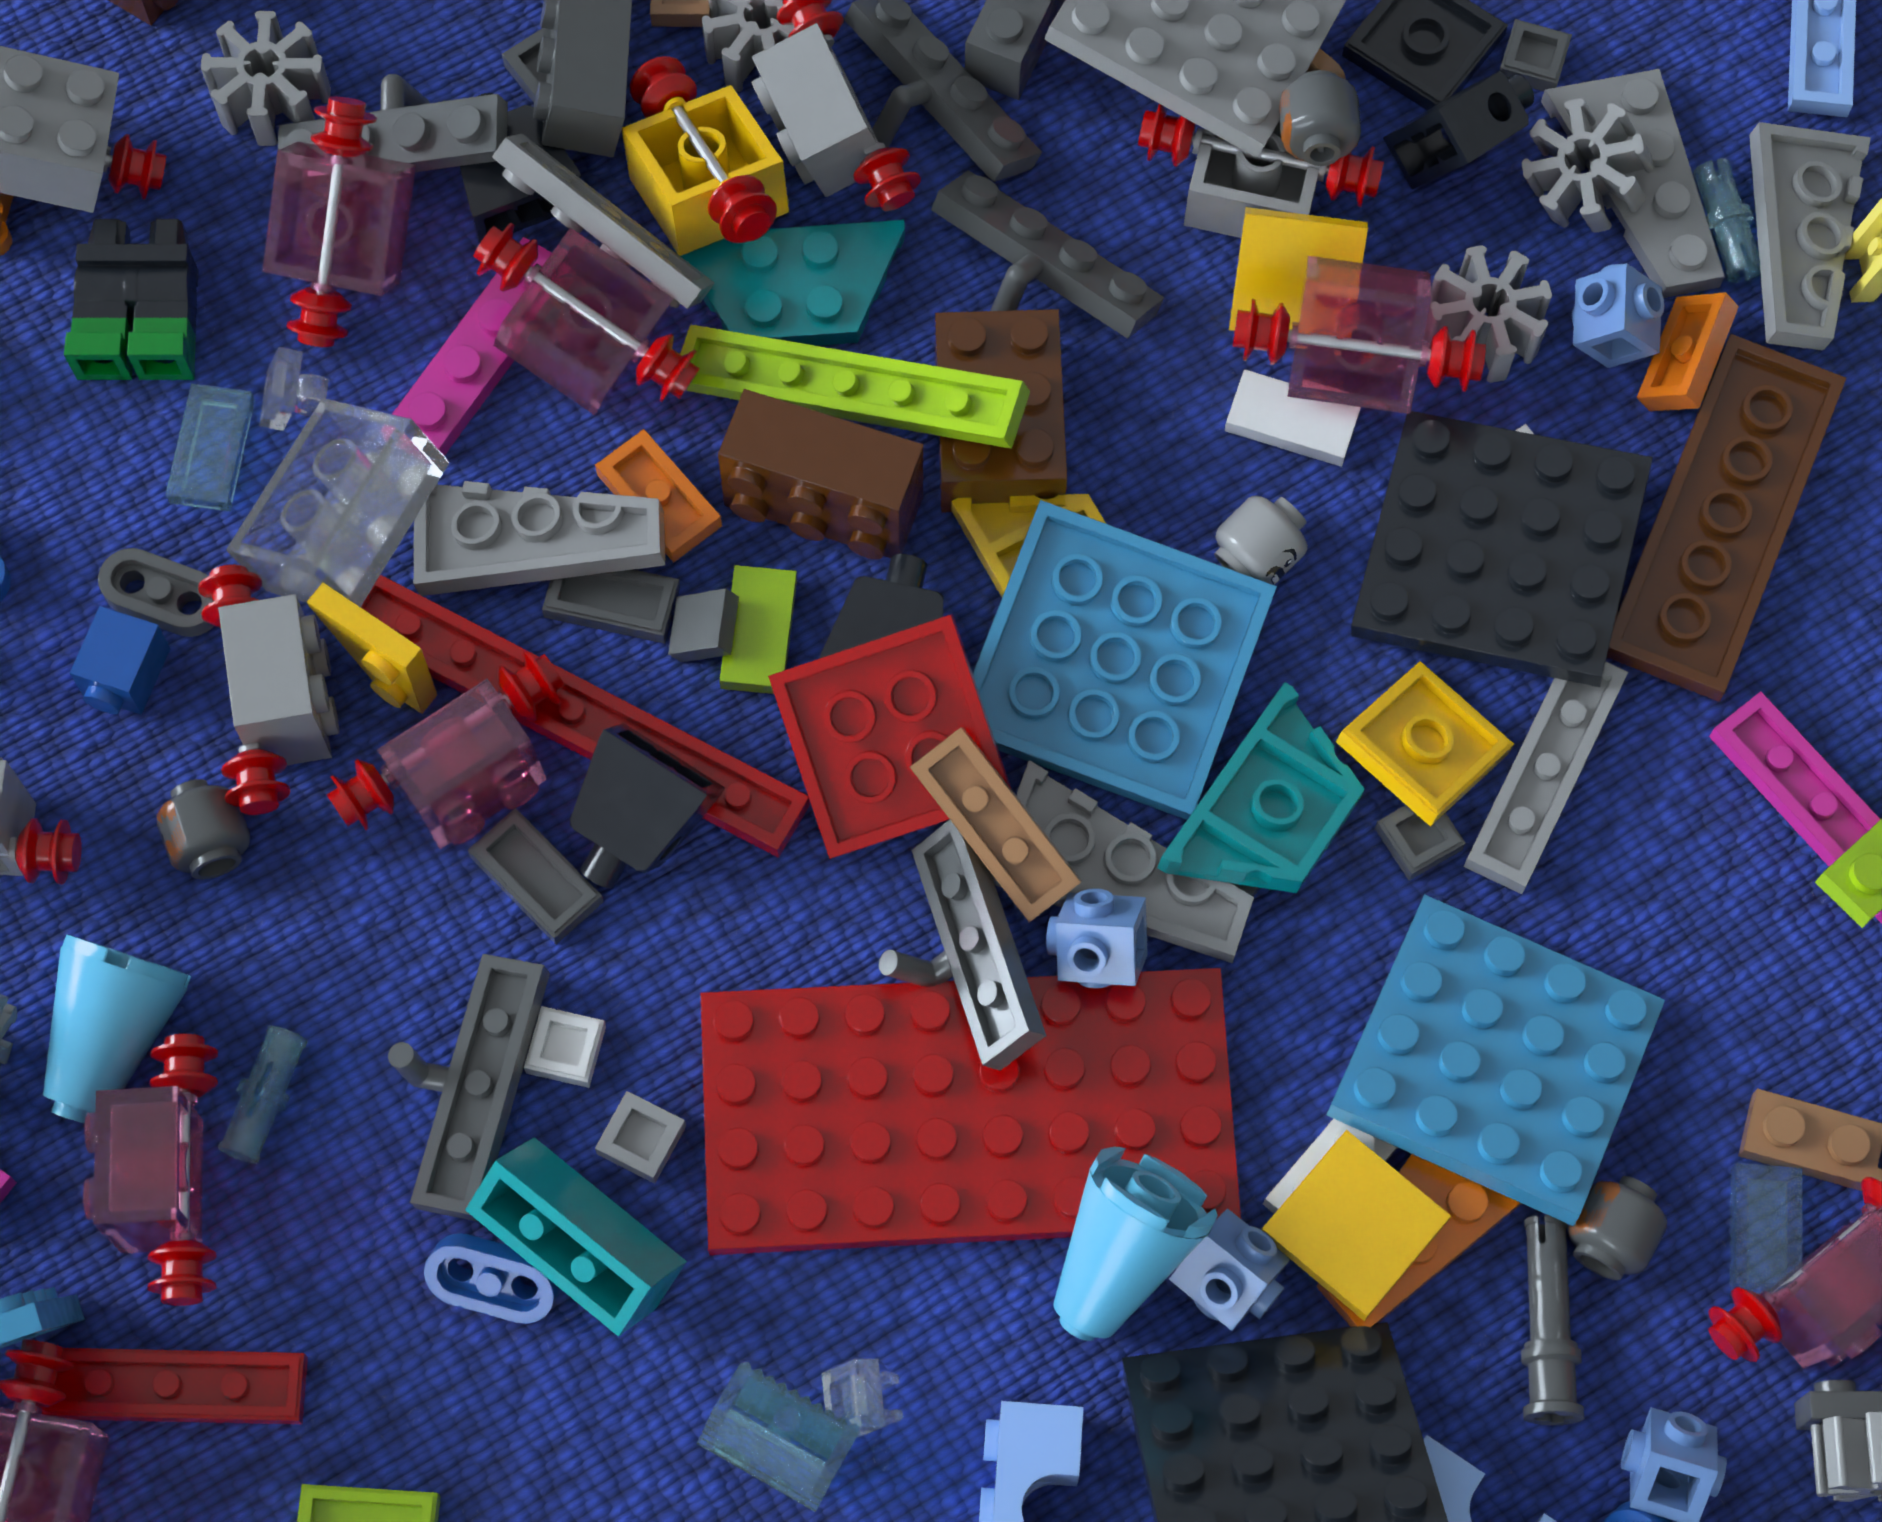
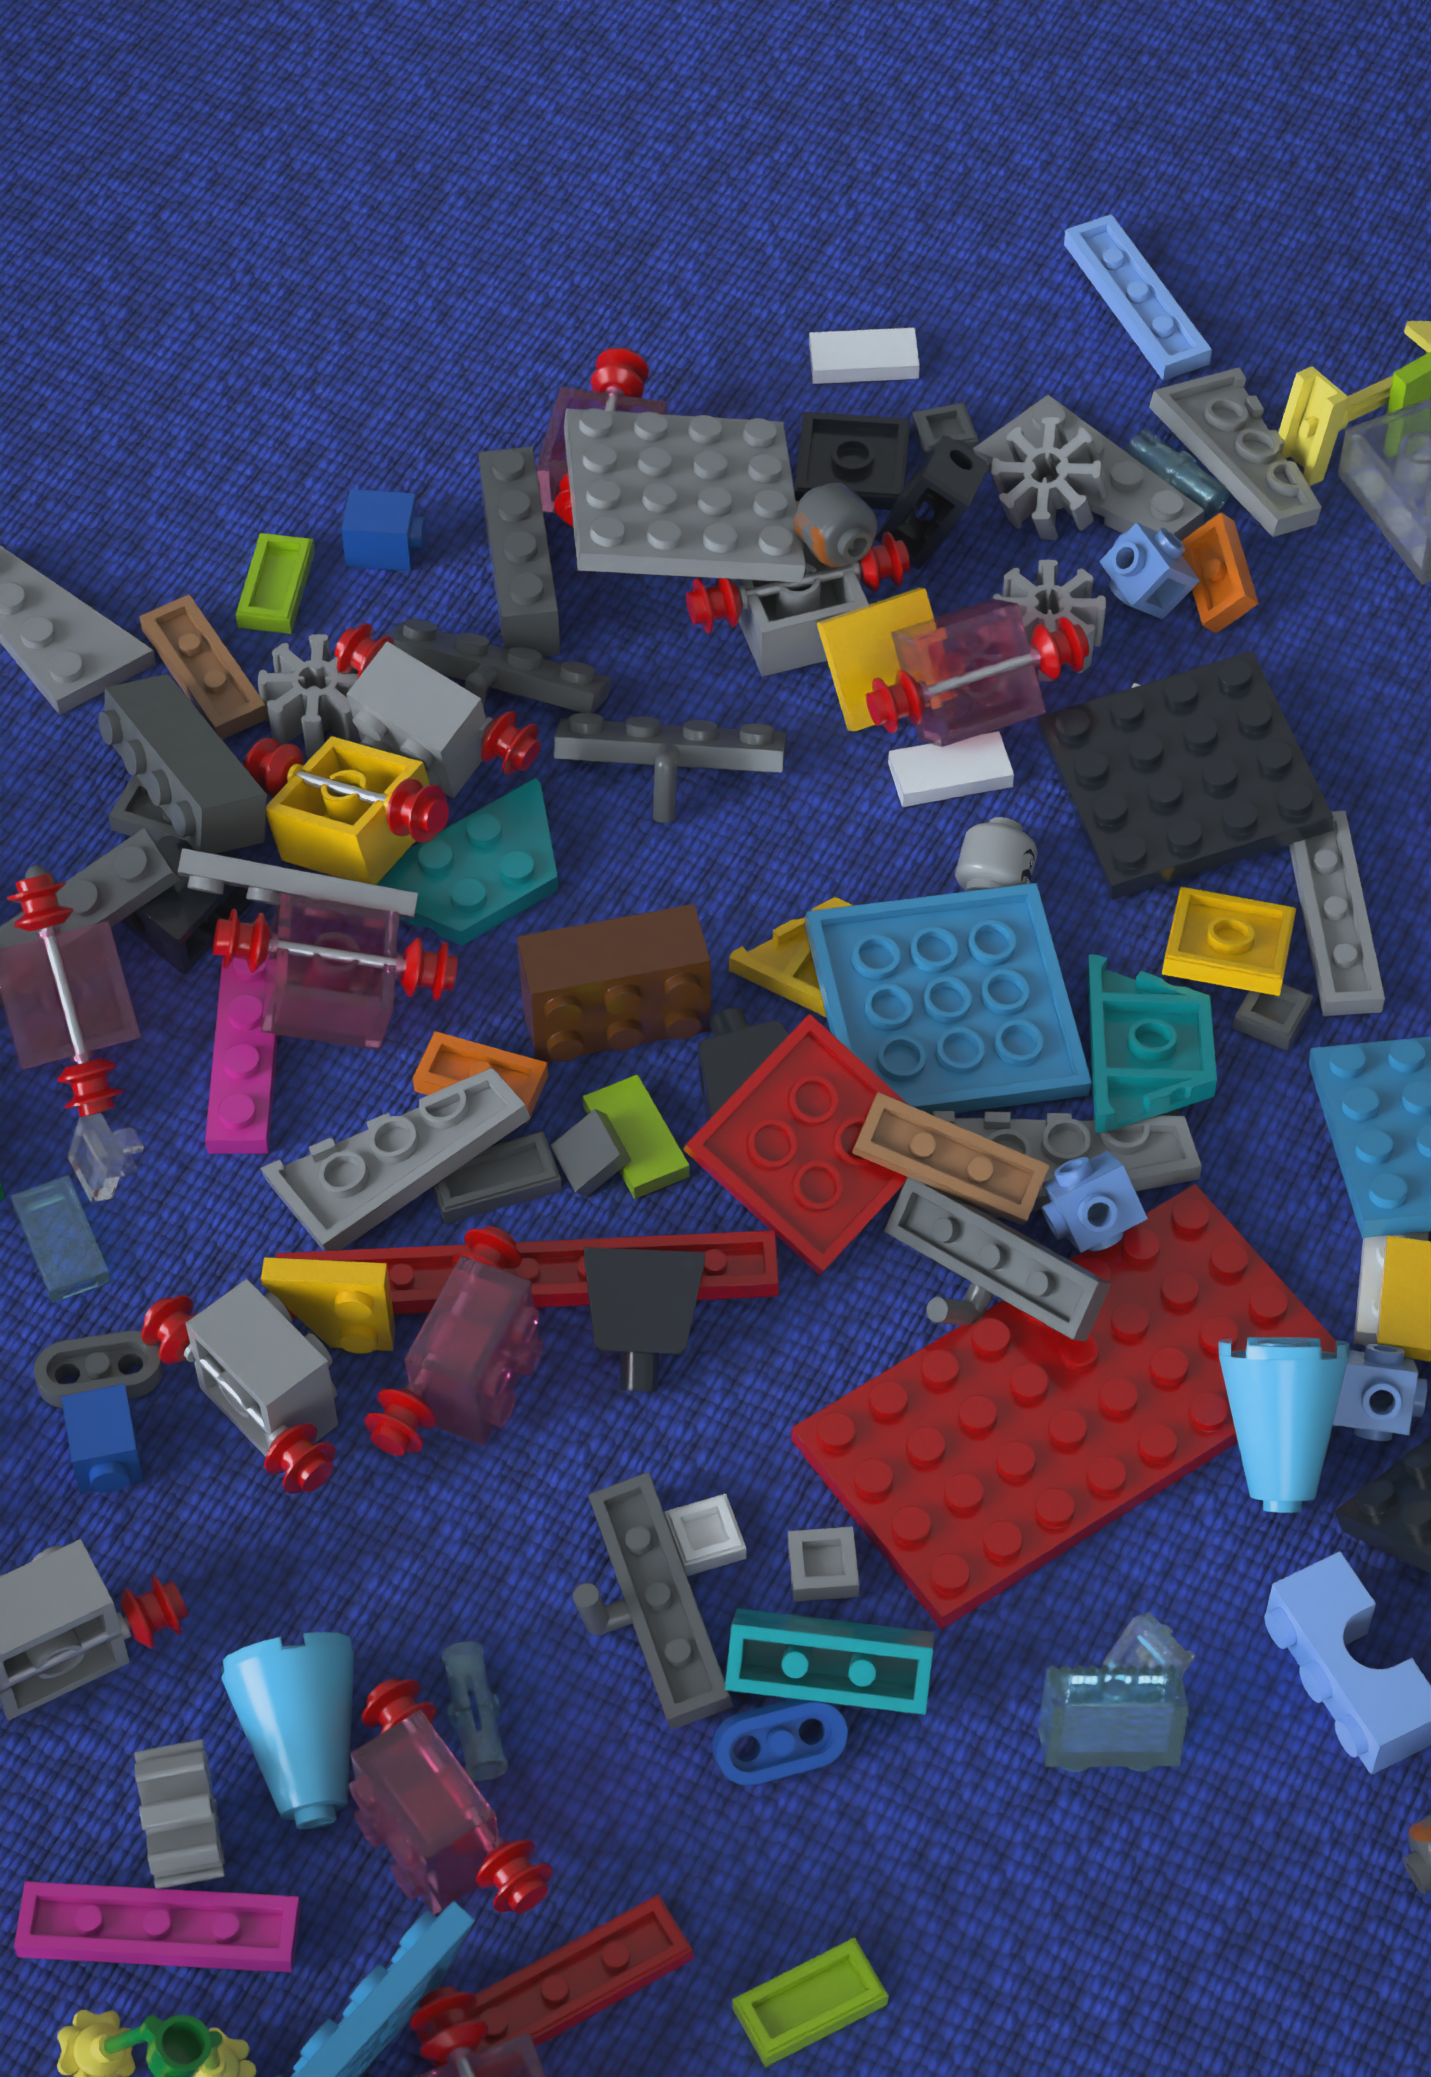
camera: 30 degrees left, 15 degrees down
(202, 830) = (271, 1531): dark grey head -> none
(339, 502) = (218, 1202): clear brick -> none
(535, 876) = (584, 1418): dark grey tile -> none
(859, 386) = (631, 886): lime plate -> none
(1016, 347) = (720, 855): reddish brown brick -> none
(1724, 517) = (1333, 671): reddish brown plate -> none

